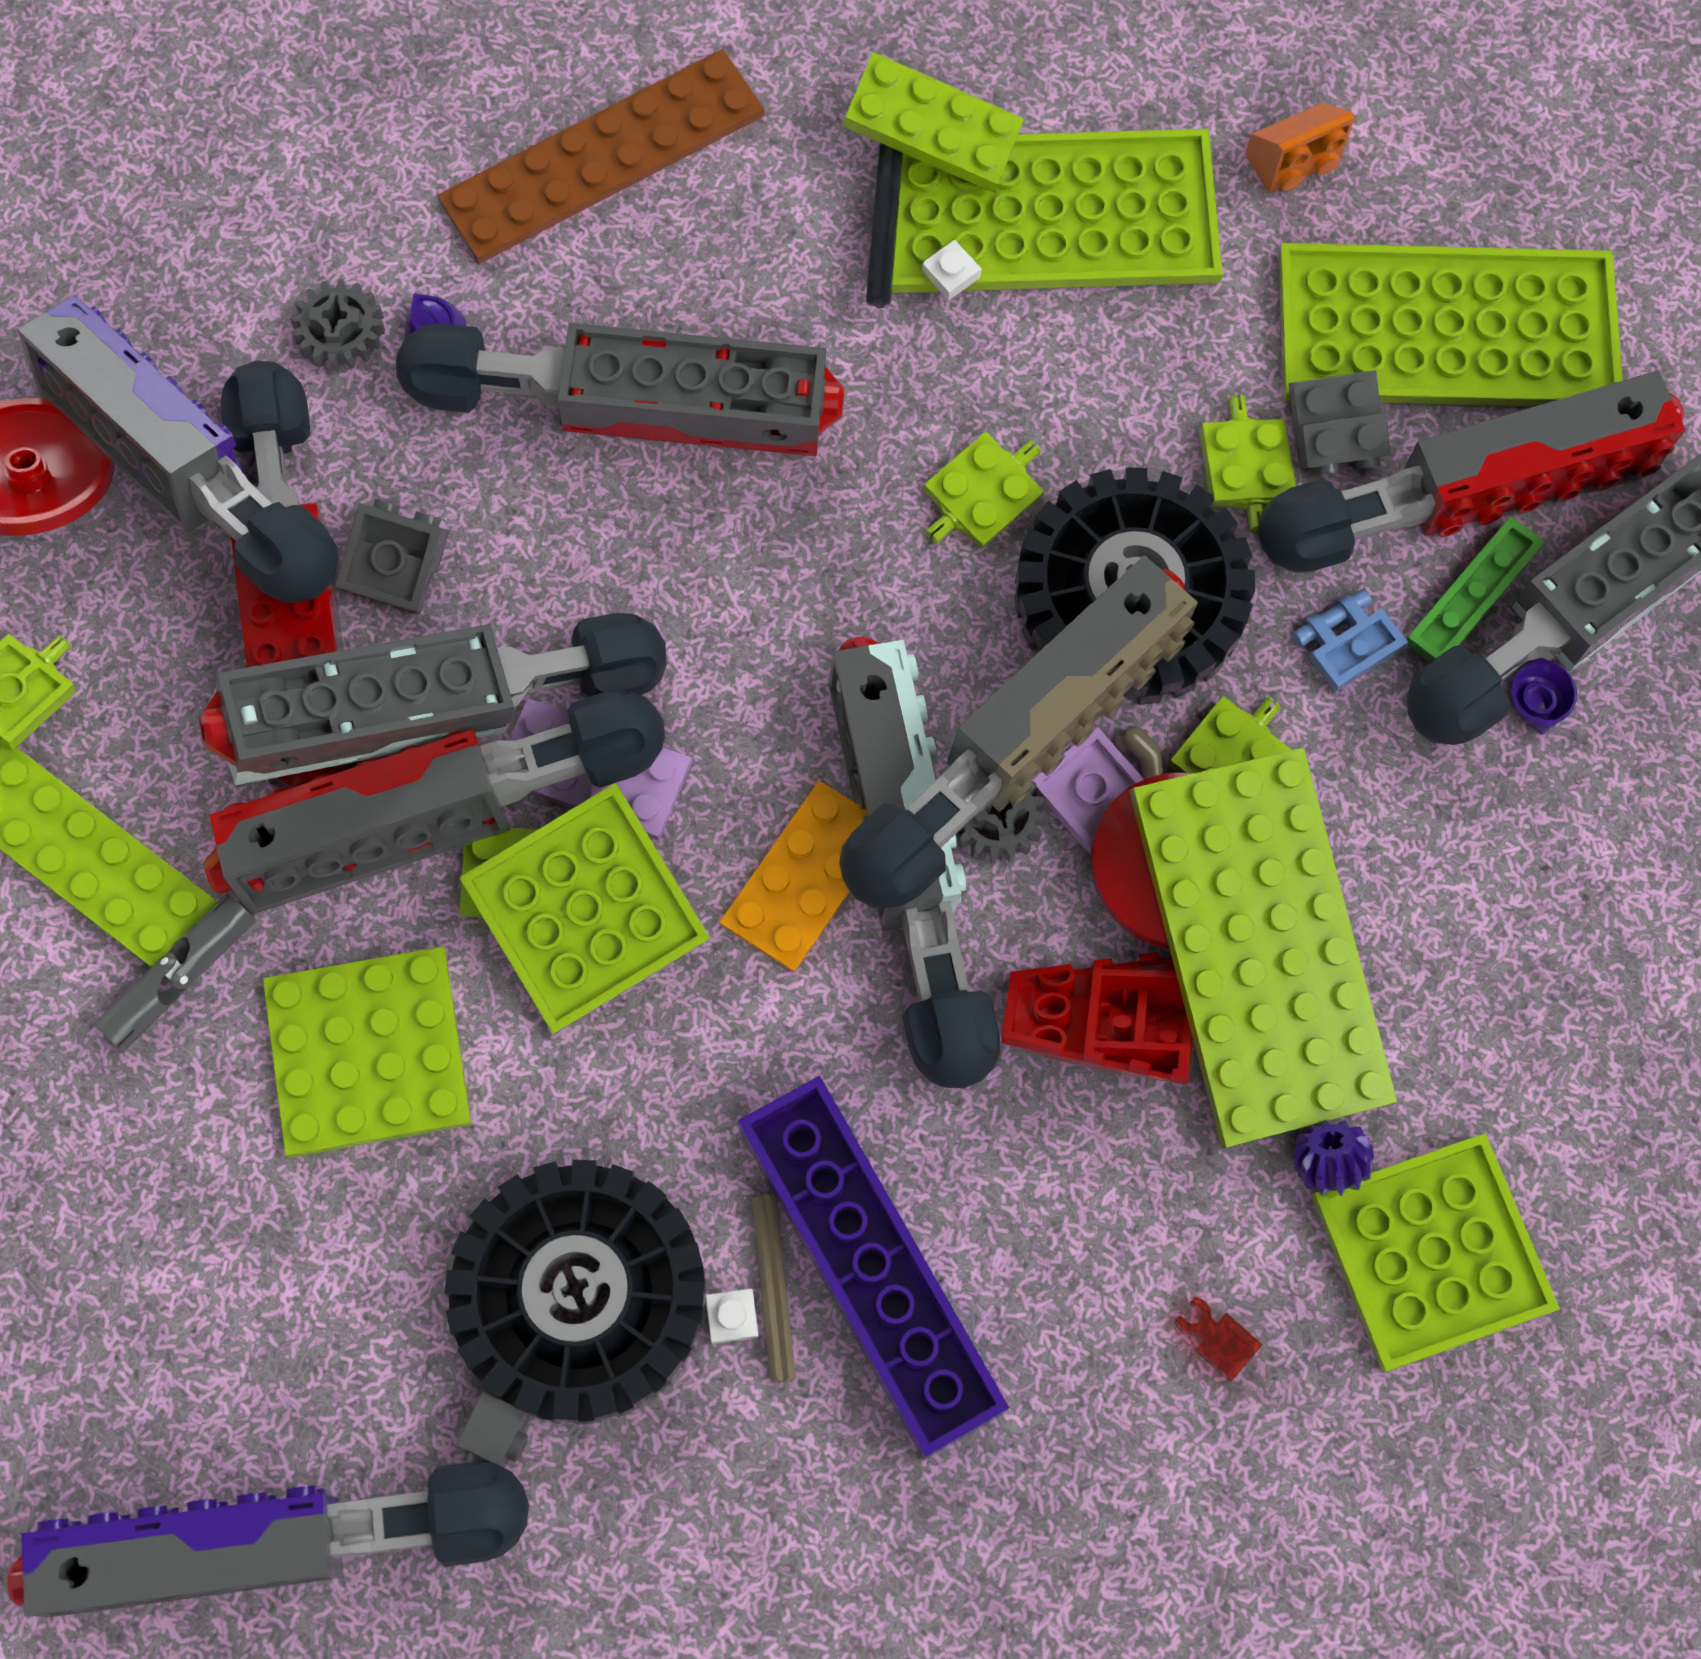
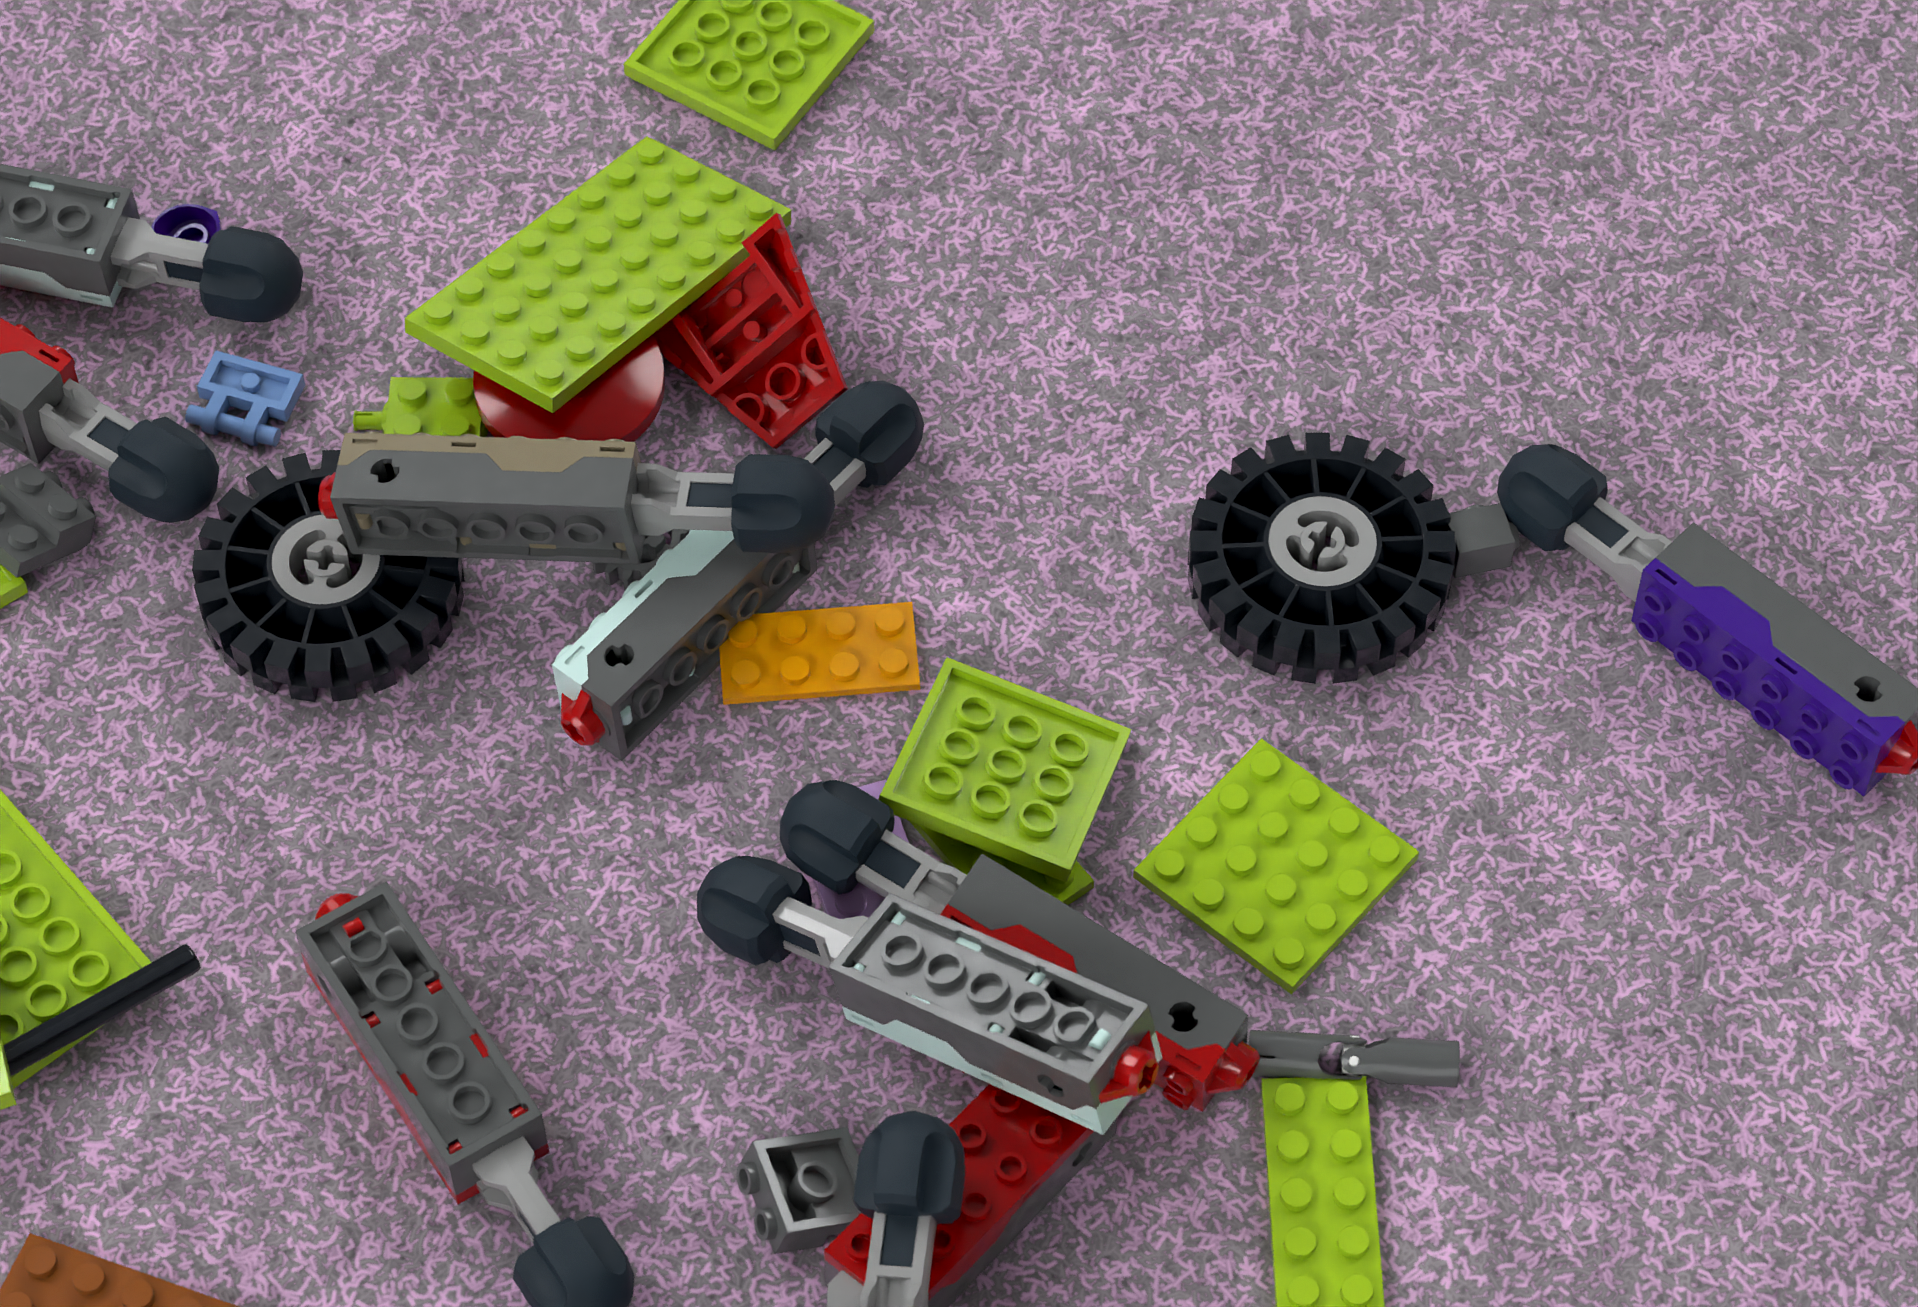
camera: 125 degrees left, 15 degrees down
(732, 1316) = (1227, 445): white plate -> none
(773, 1288) = (1184, 442): dark tan axle -> none
(872, 1268) = (1106, 377): dark purple brick -> none
(951, 270) = (104, 923): white plate -> none
(983, 490) = (322, 761): lime plate -> none
(1223, 1343) = (946, 135): clear red plate -> none
(1246, 461) = (121, 578): lime plate -> none
(1333, 1157) = (752, 138): dark purple gear -> none
(1475, 590) = (128, 335): bright green plate -> none

